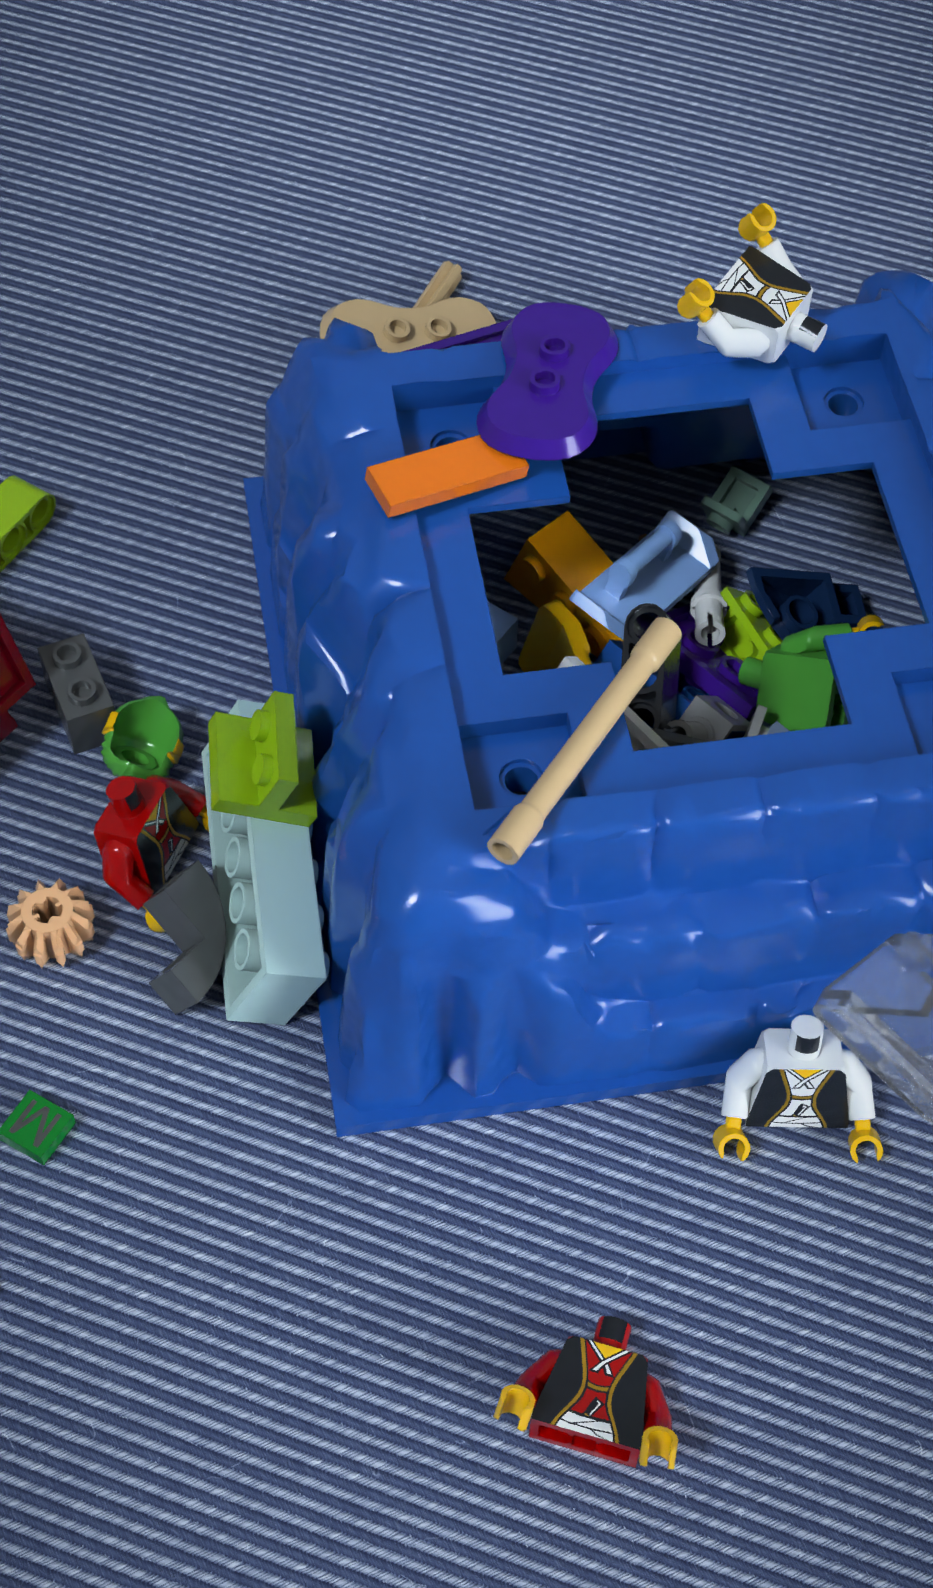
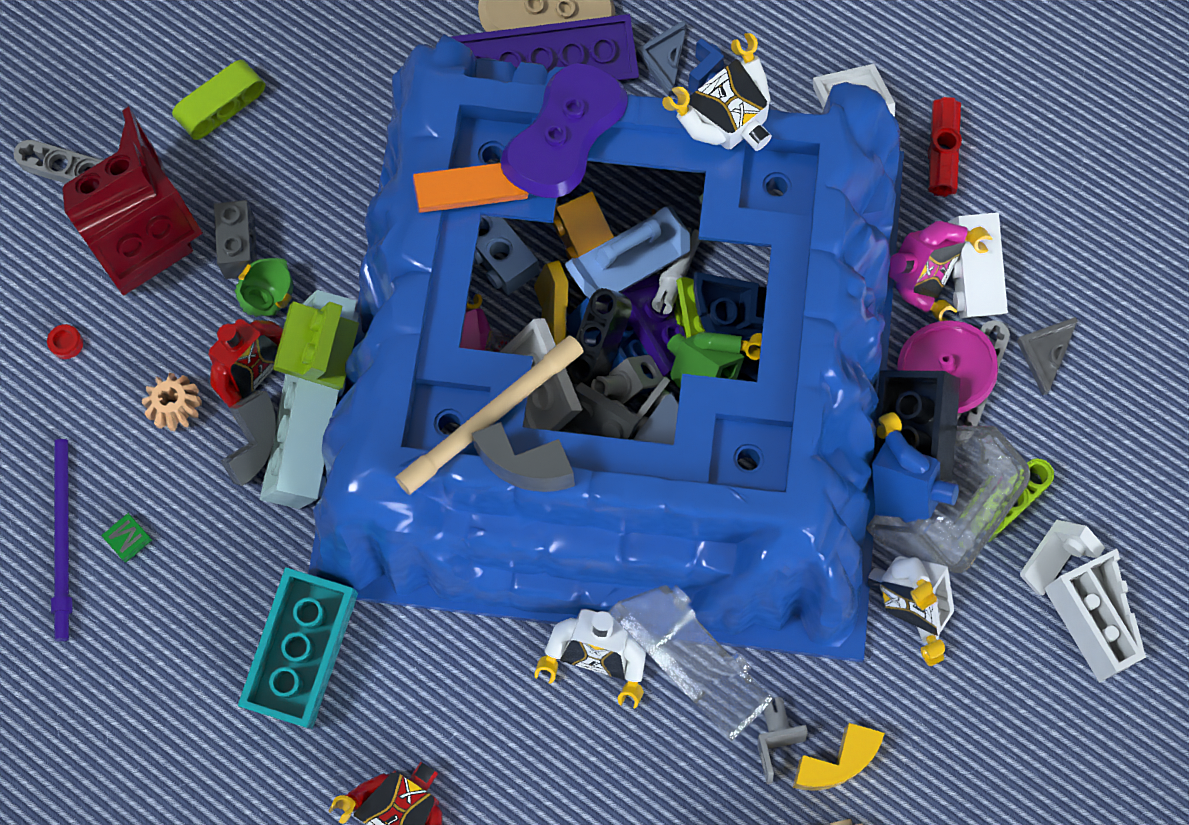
camera: 20 degrees right, 15 degrees up
(363, 1202) = (298, 648): none -> teal brick
(684, 786) = (534, 470): none -> dark grey brick

